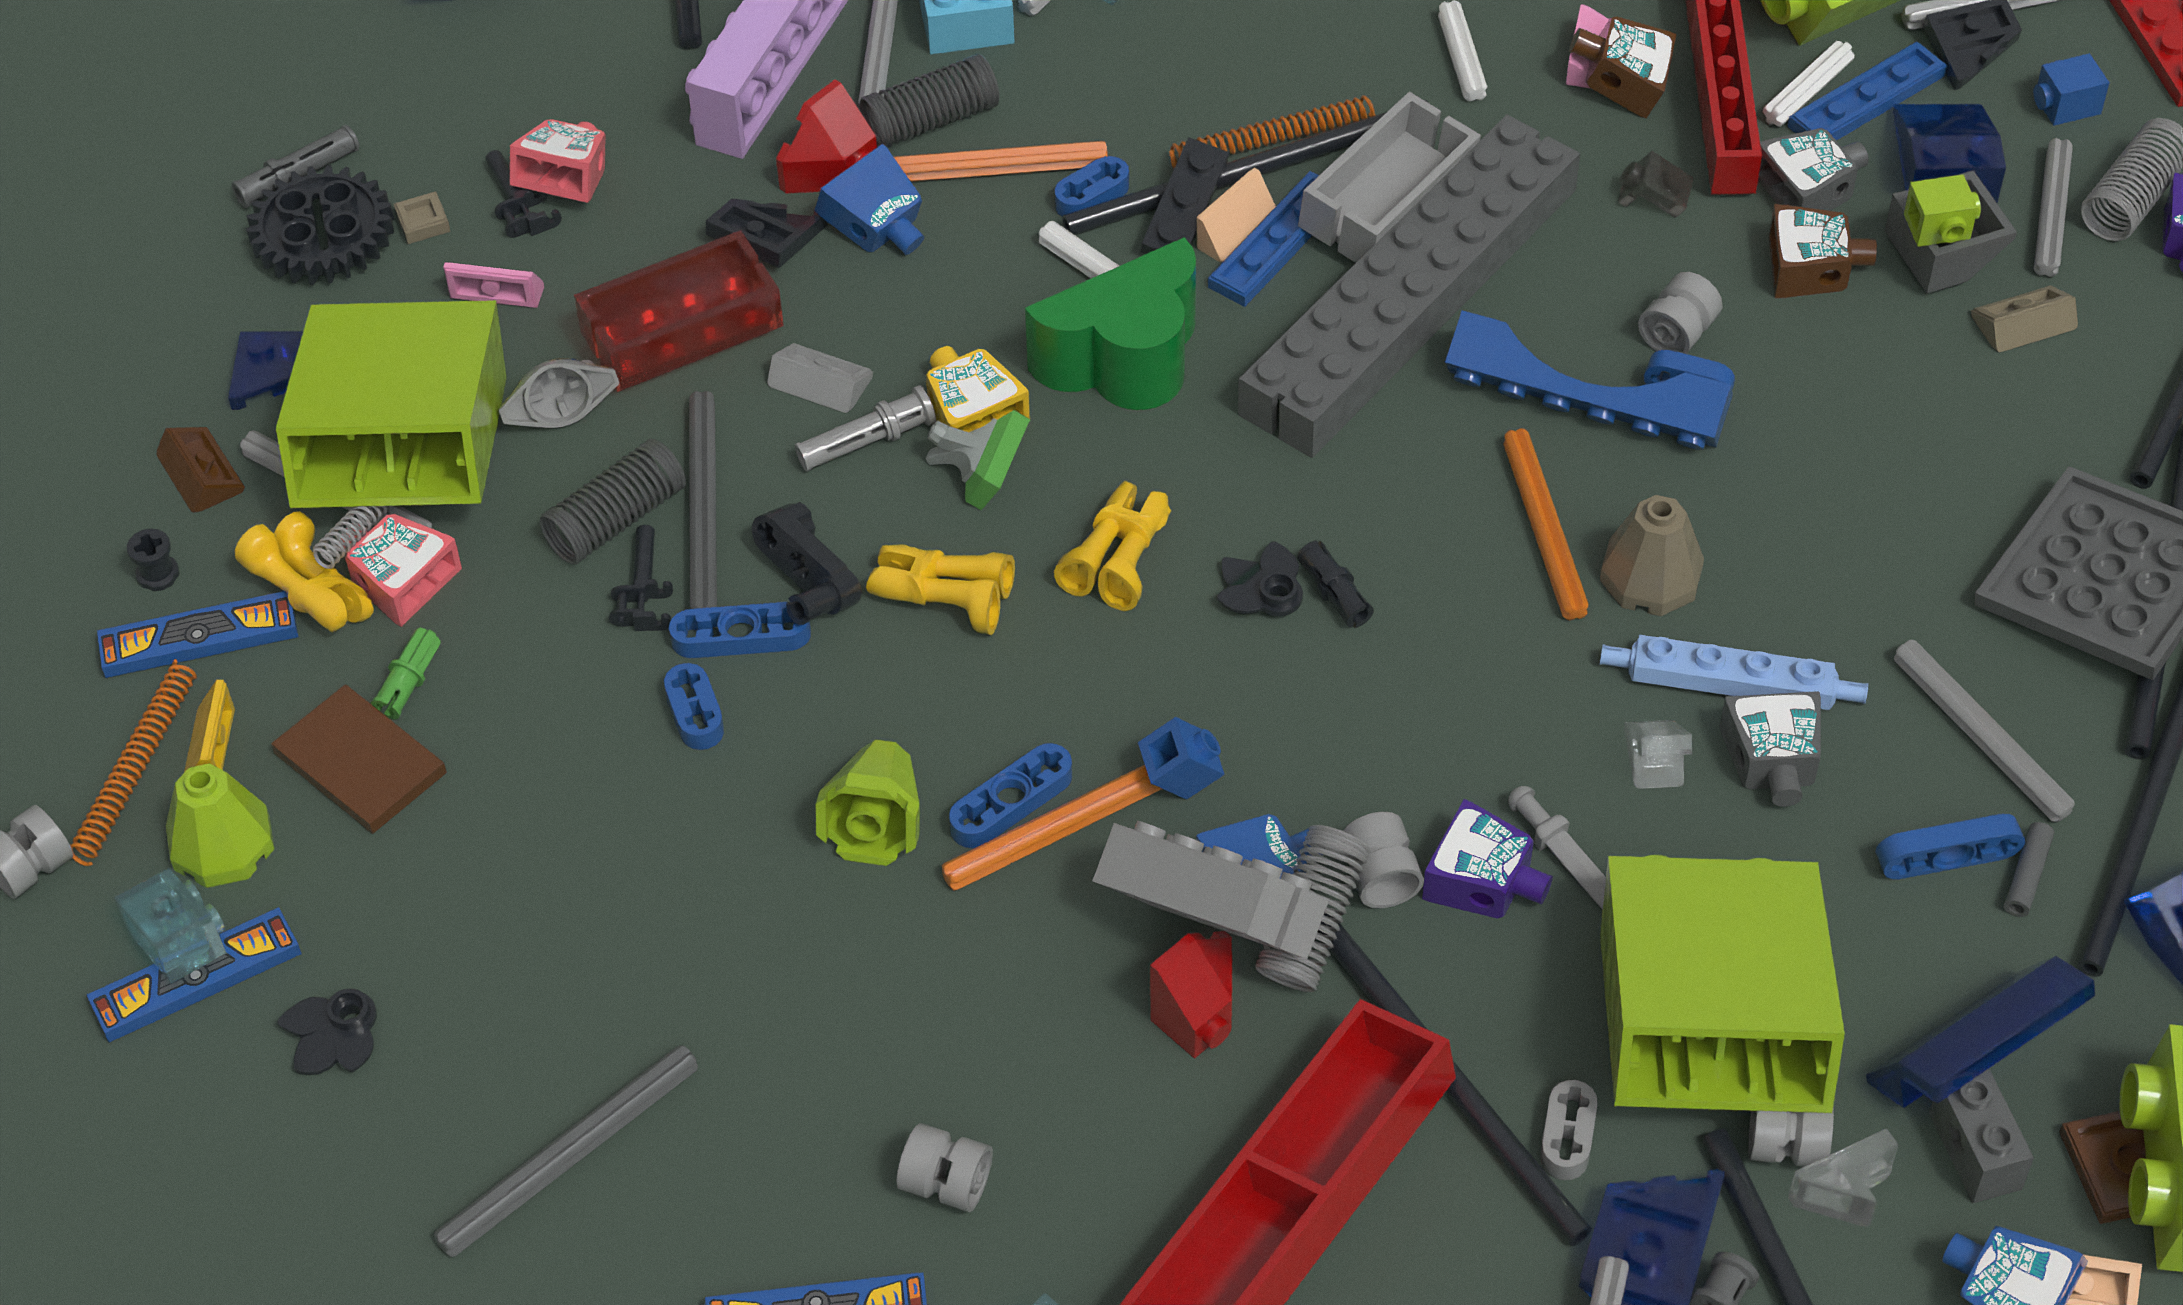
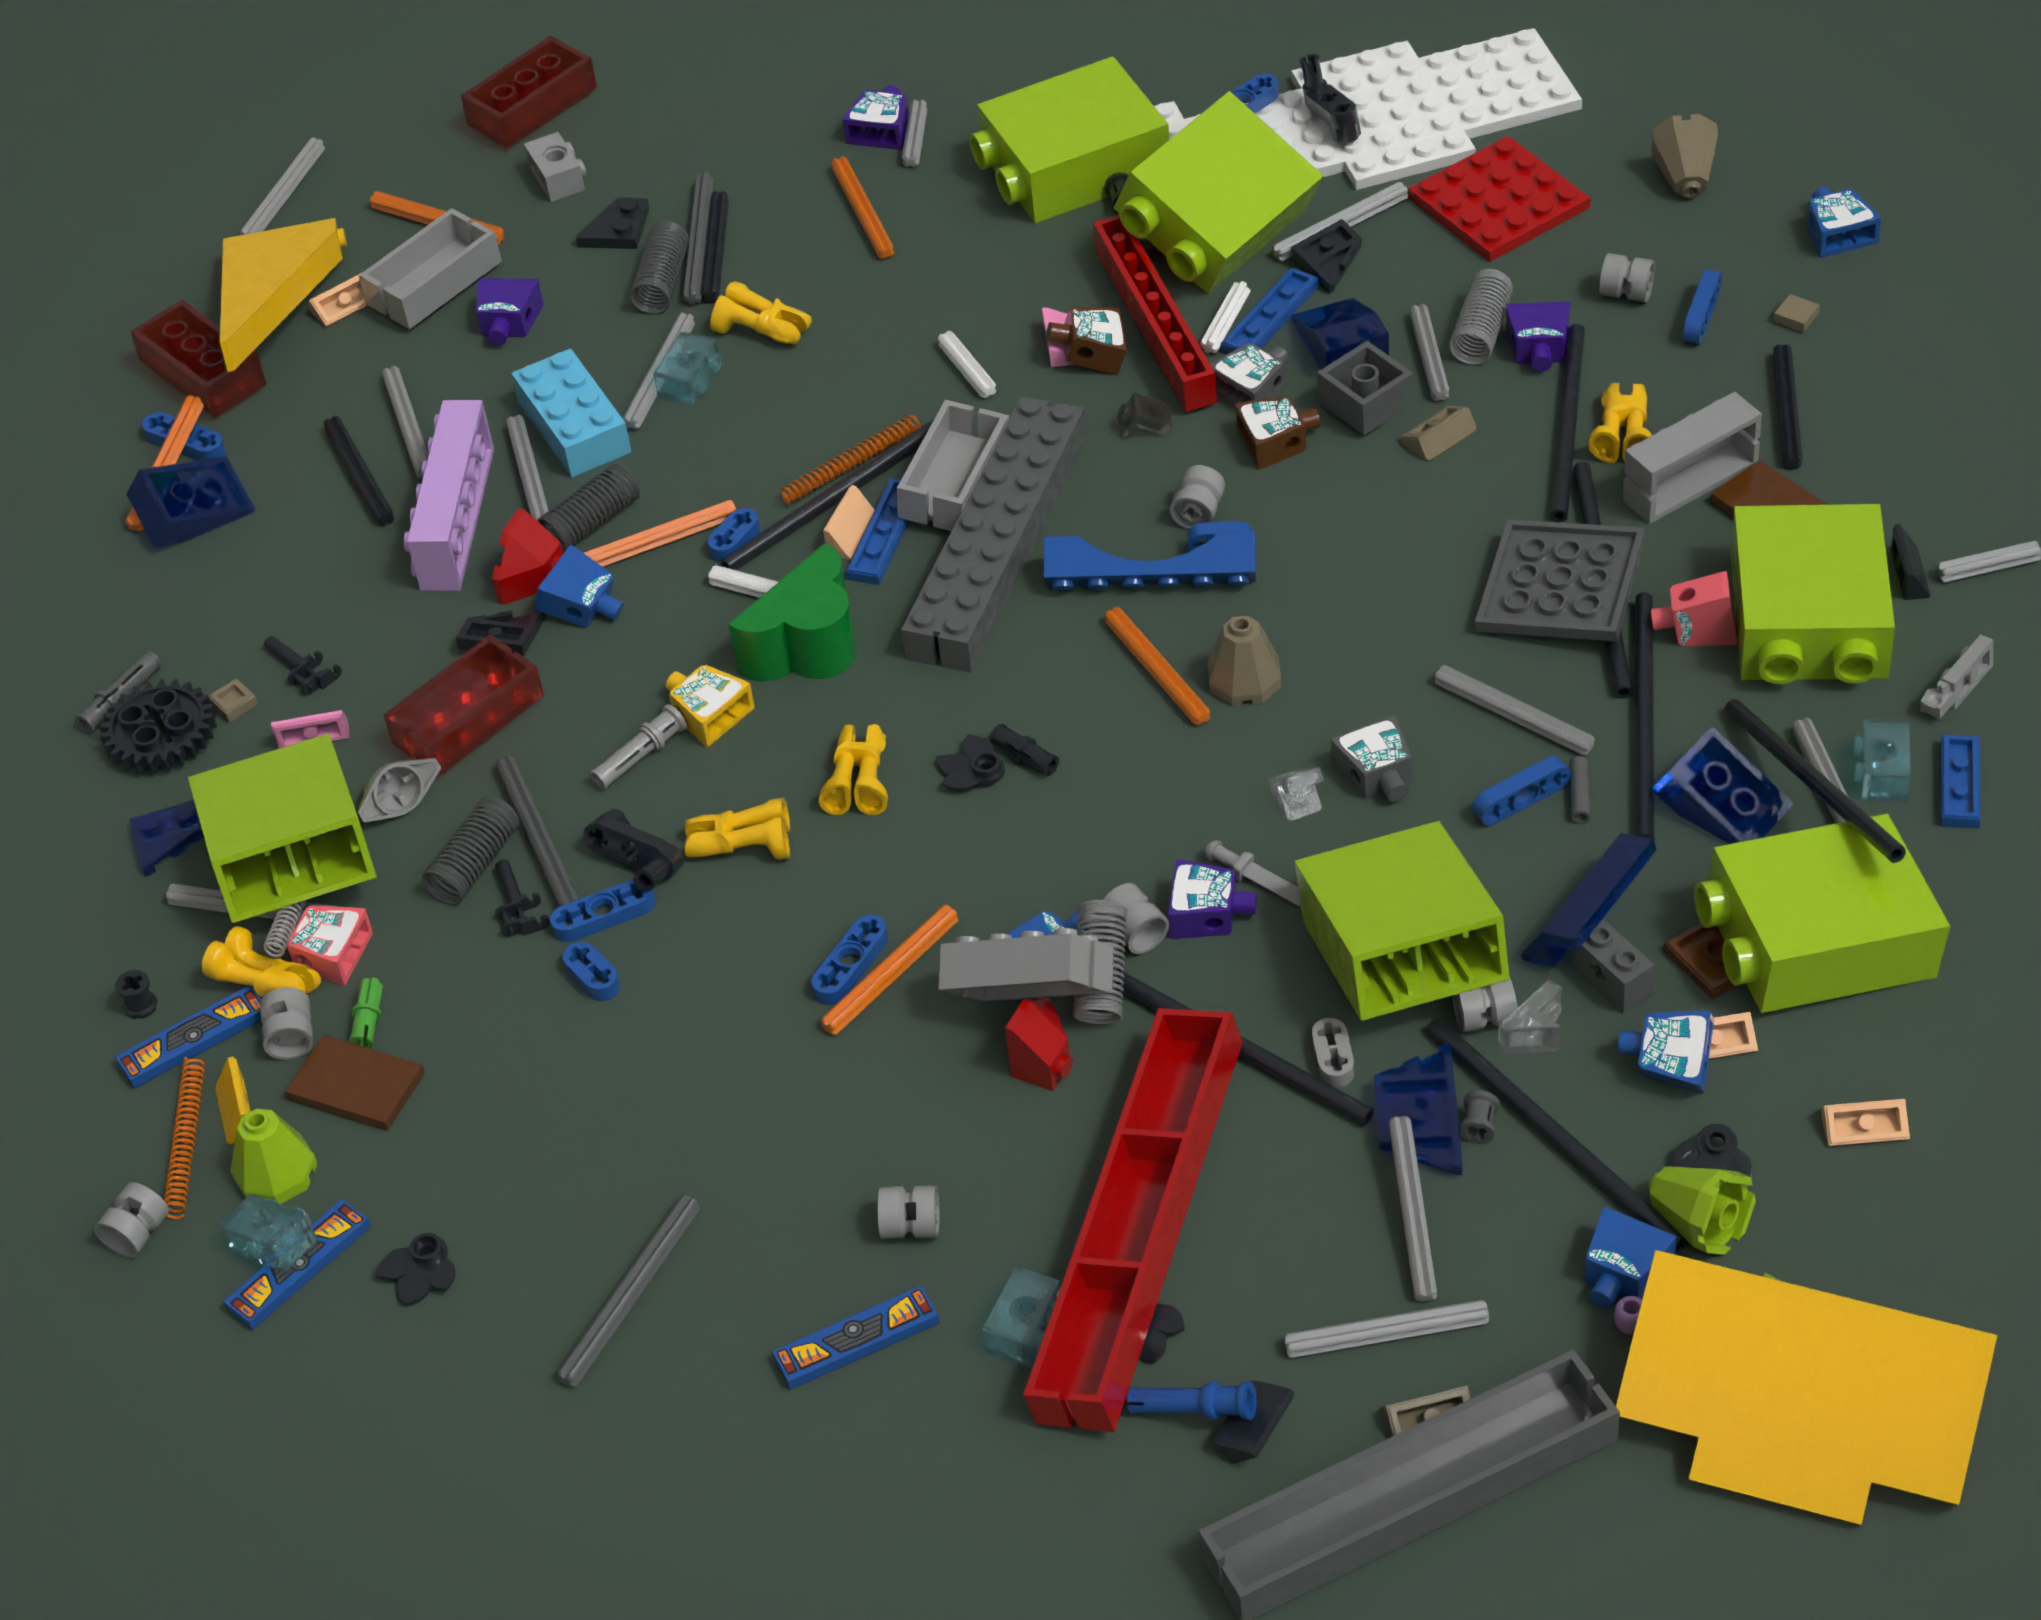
camera: 15 degrees left, 5 degrees down
(198, 467) = (138, 923): reddish brown slope -> none
(306, 656) = (286, 1023): none -> light grey wheel
(559, 159) = (324, 627): coral torso -> none
(818, 377) = (585, 723): light grey slope -> none
(871, 805) = (755, 995): lime cone -> none
(979, 454) = (733, 738): piece -> none
(1181, 758) = (965, 894): blue brick -> none
(1186, 195) = (807, 519): black plate -> none
(1730, 670) = (1322, 724): light blue plate -> none
(1941, 210) = (1356, 372): lime brick -> none
(2071, 89) = (1412, 269): blue brick -> none

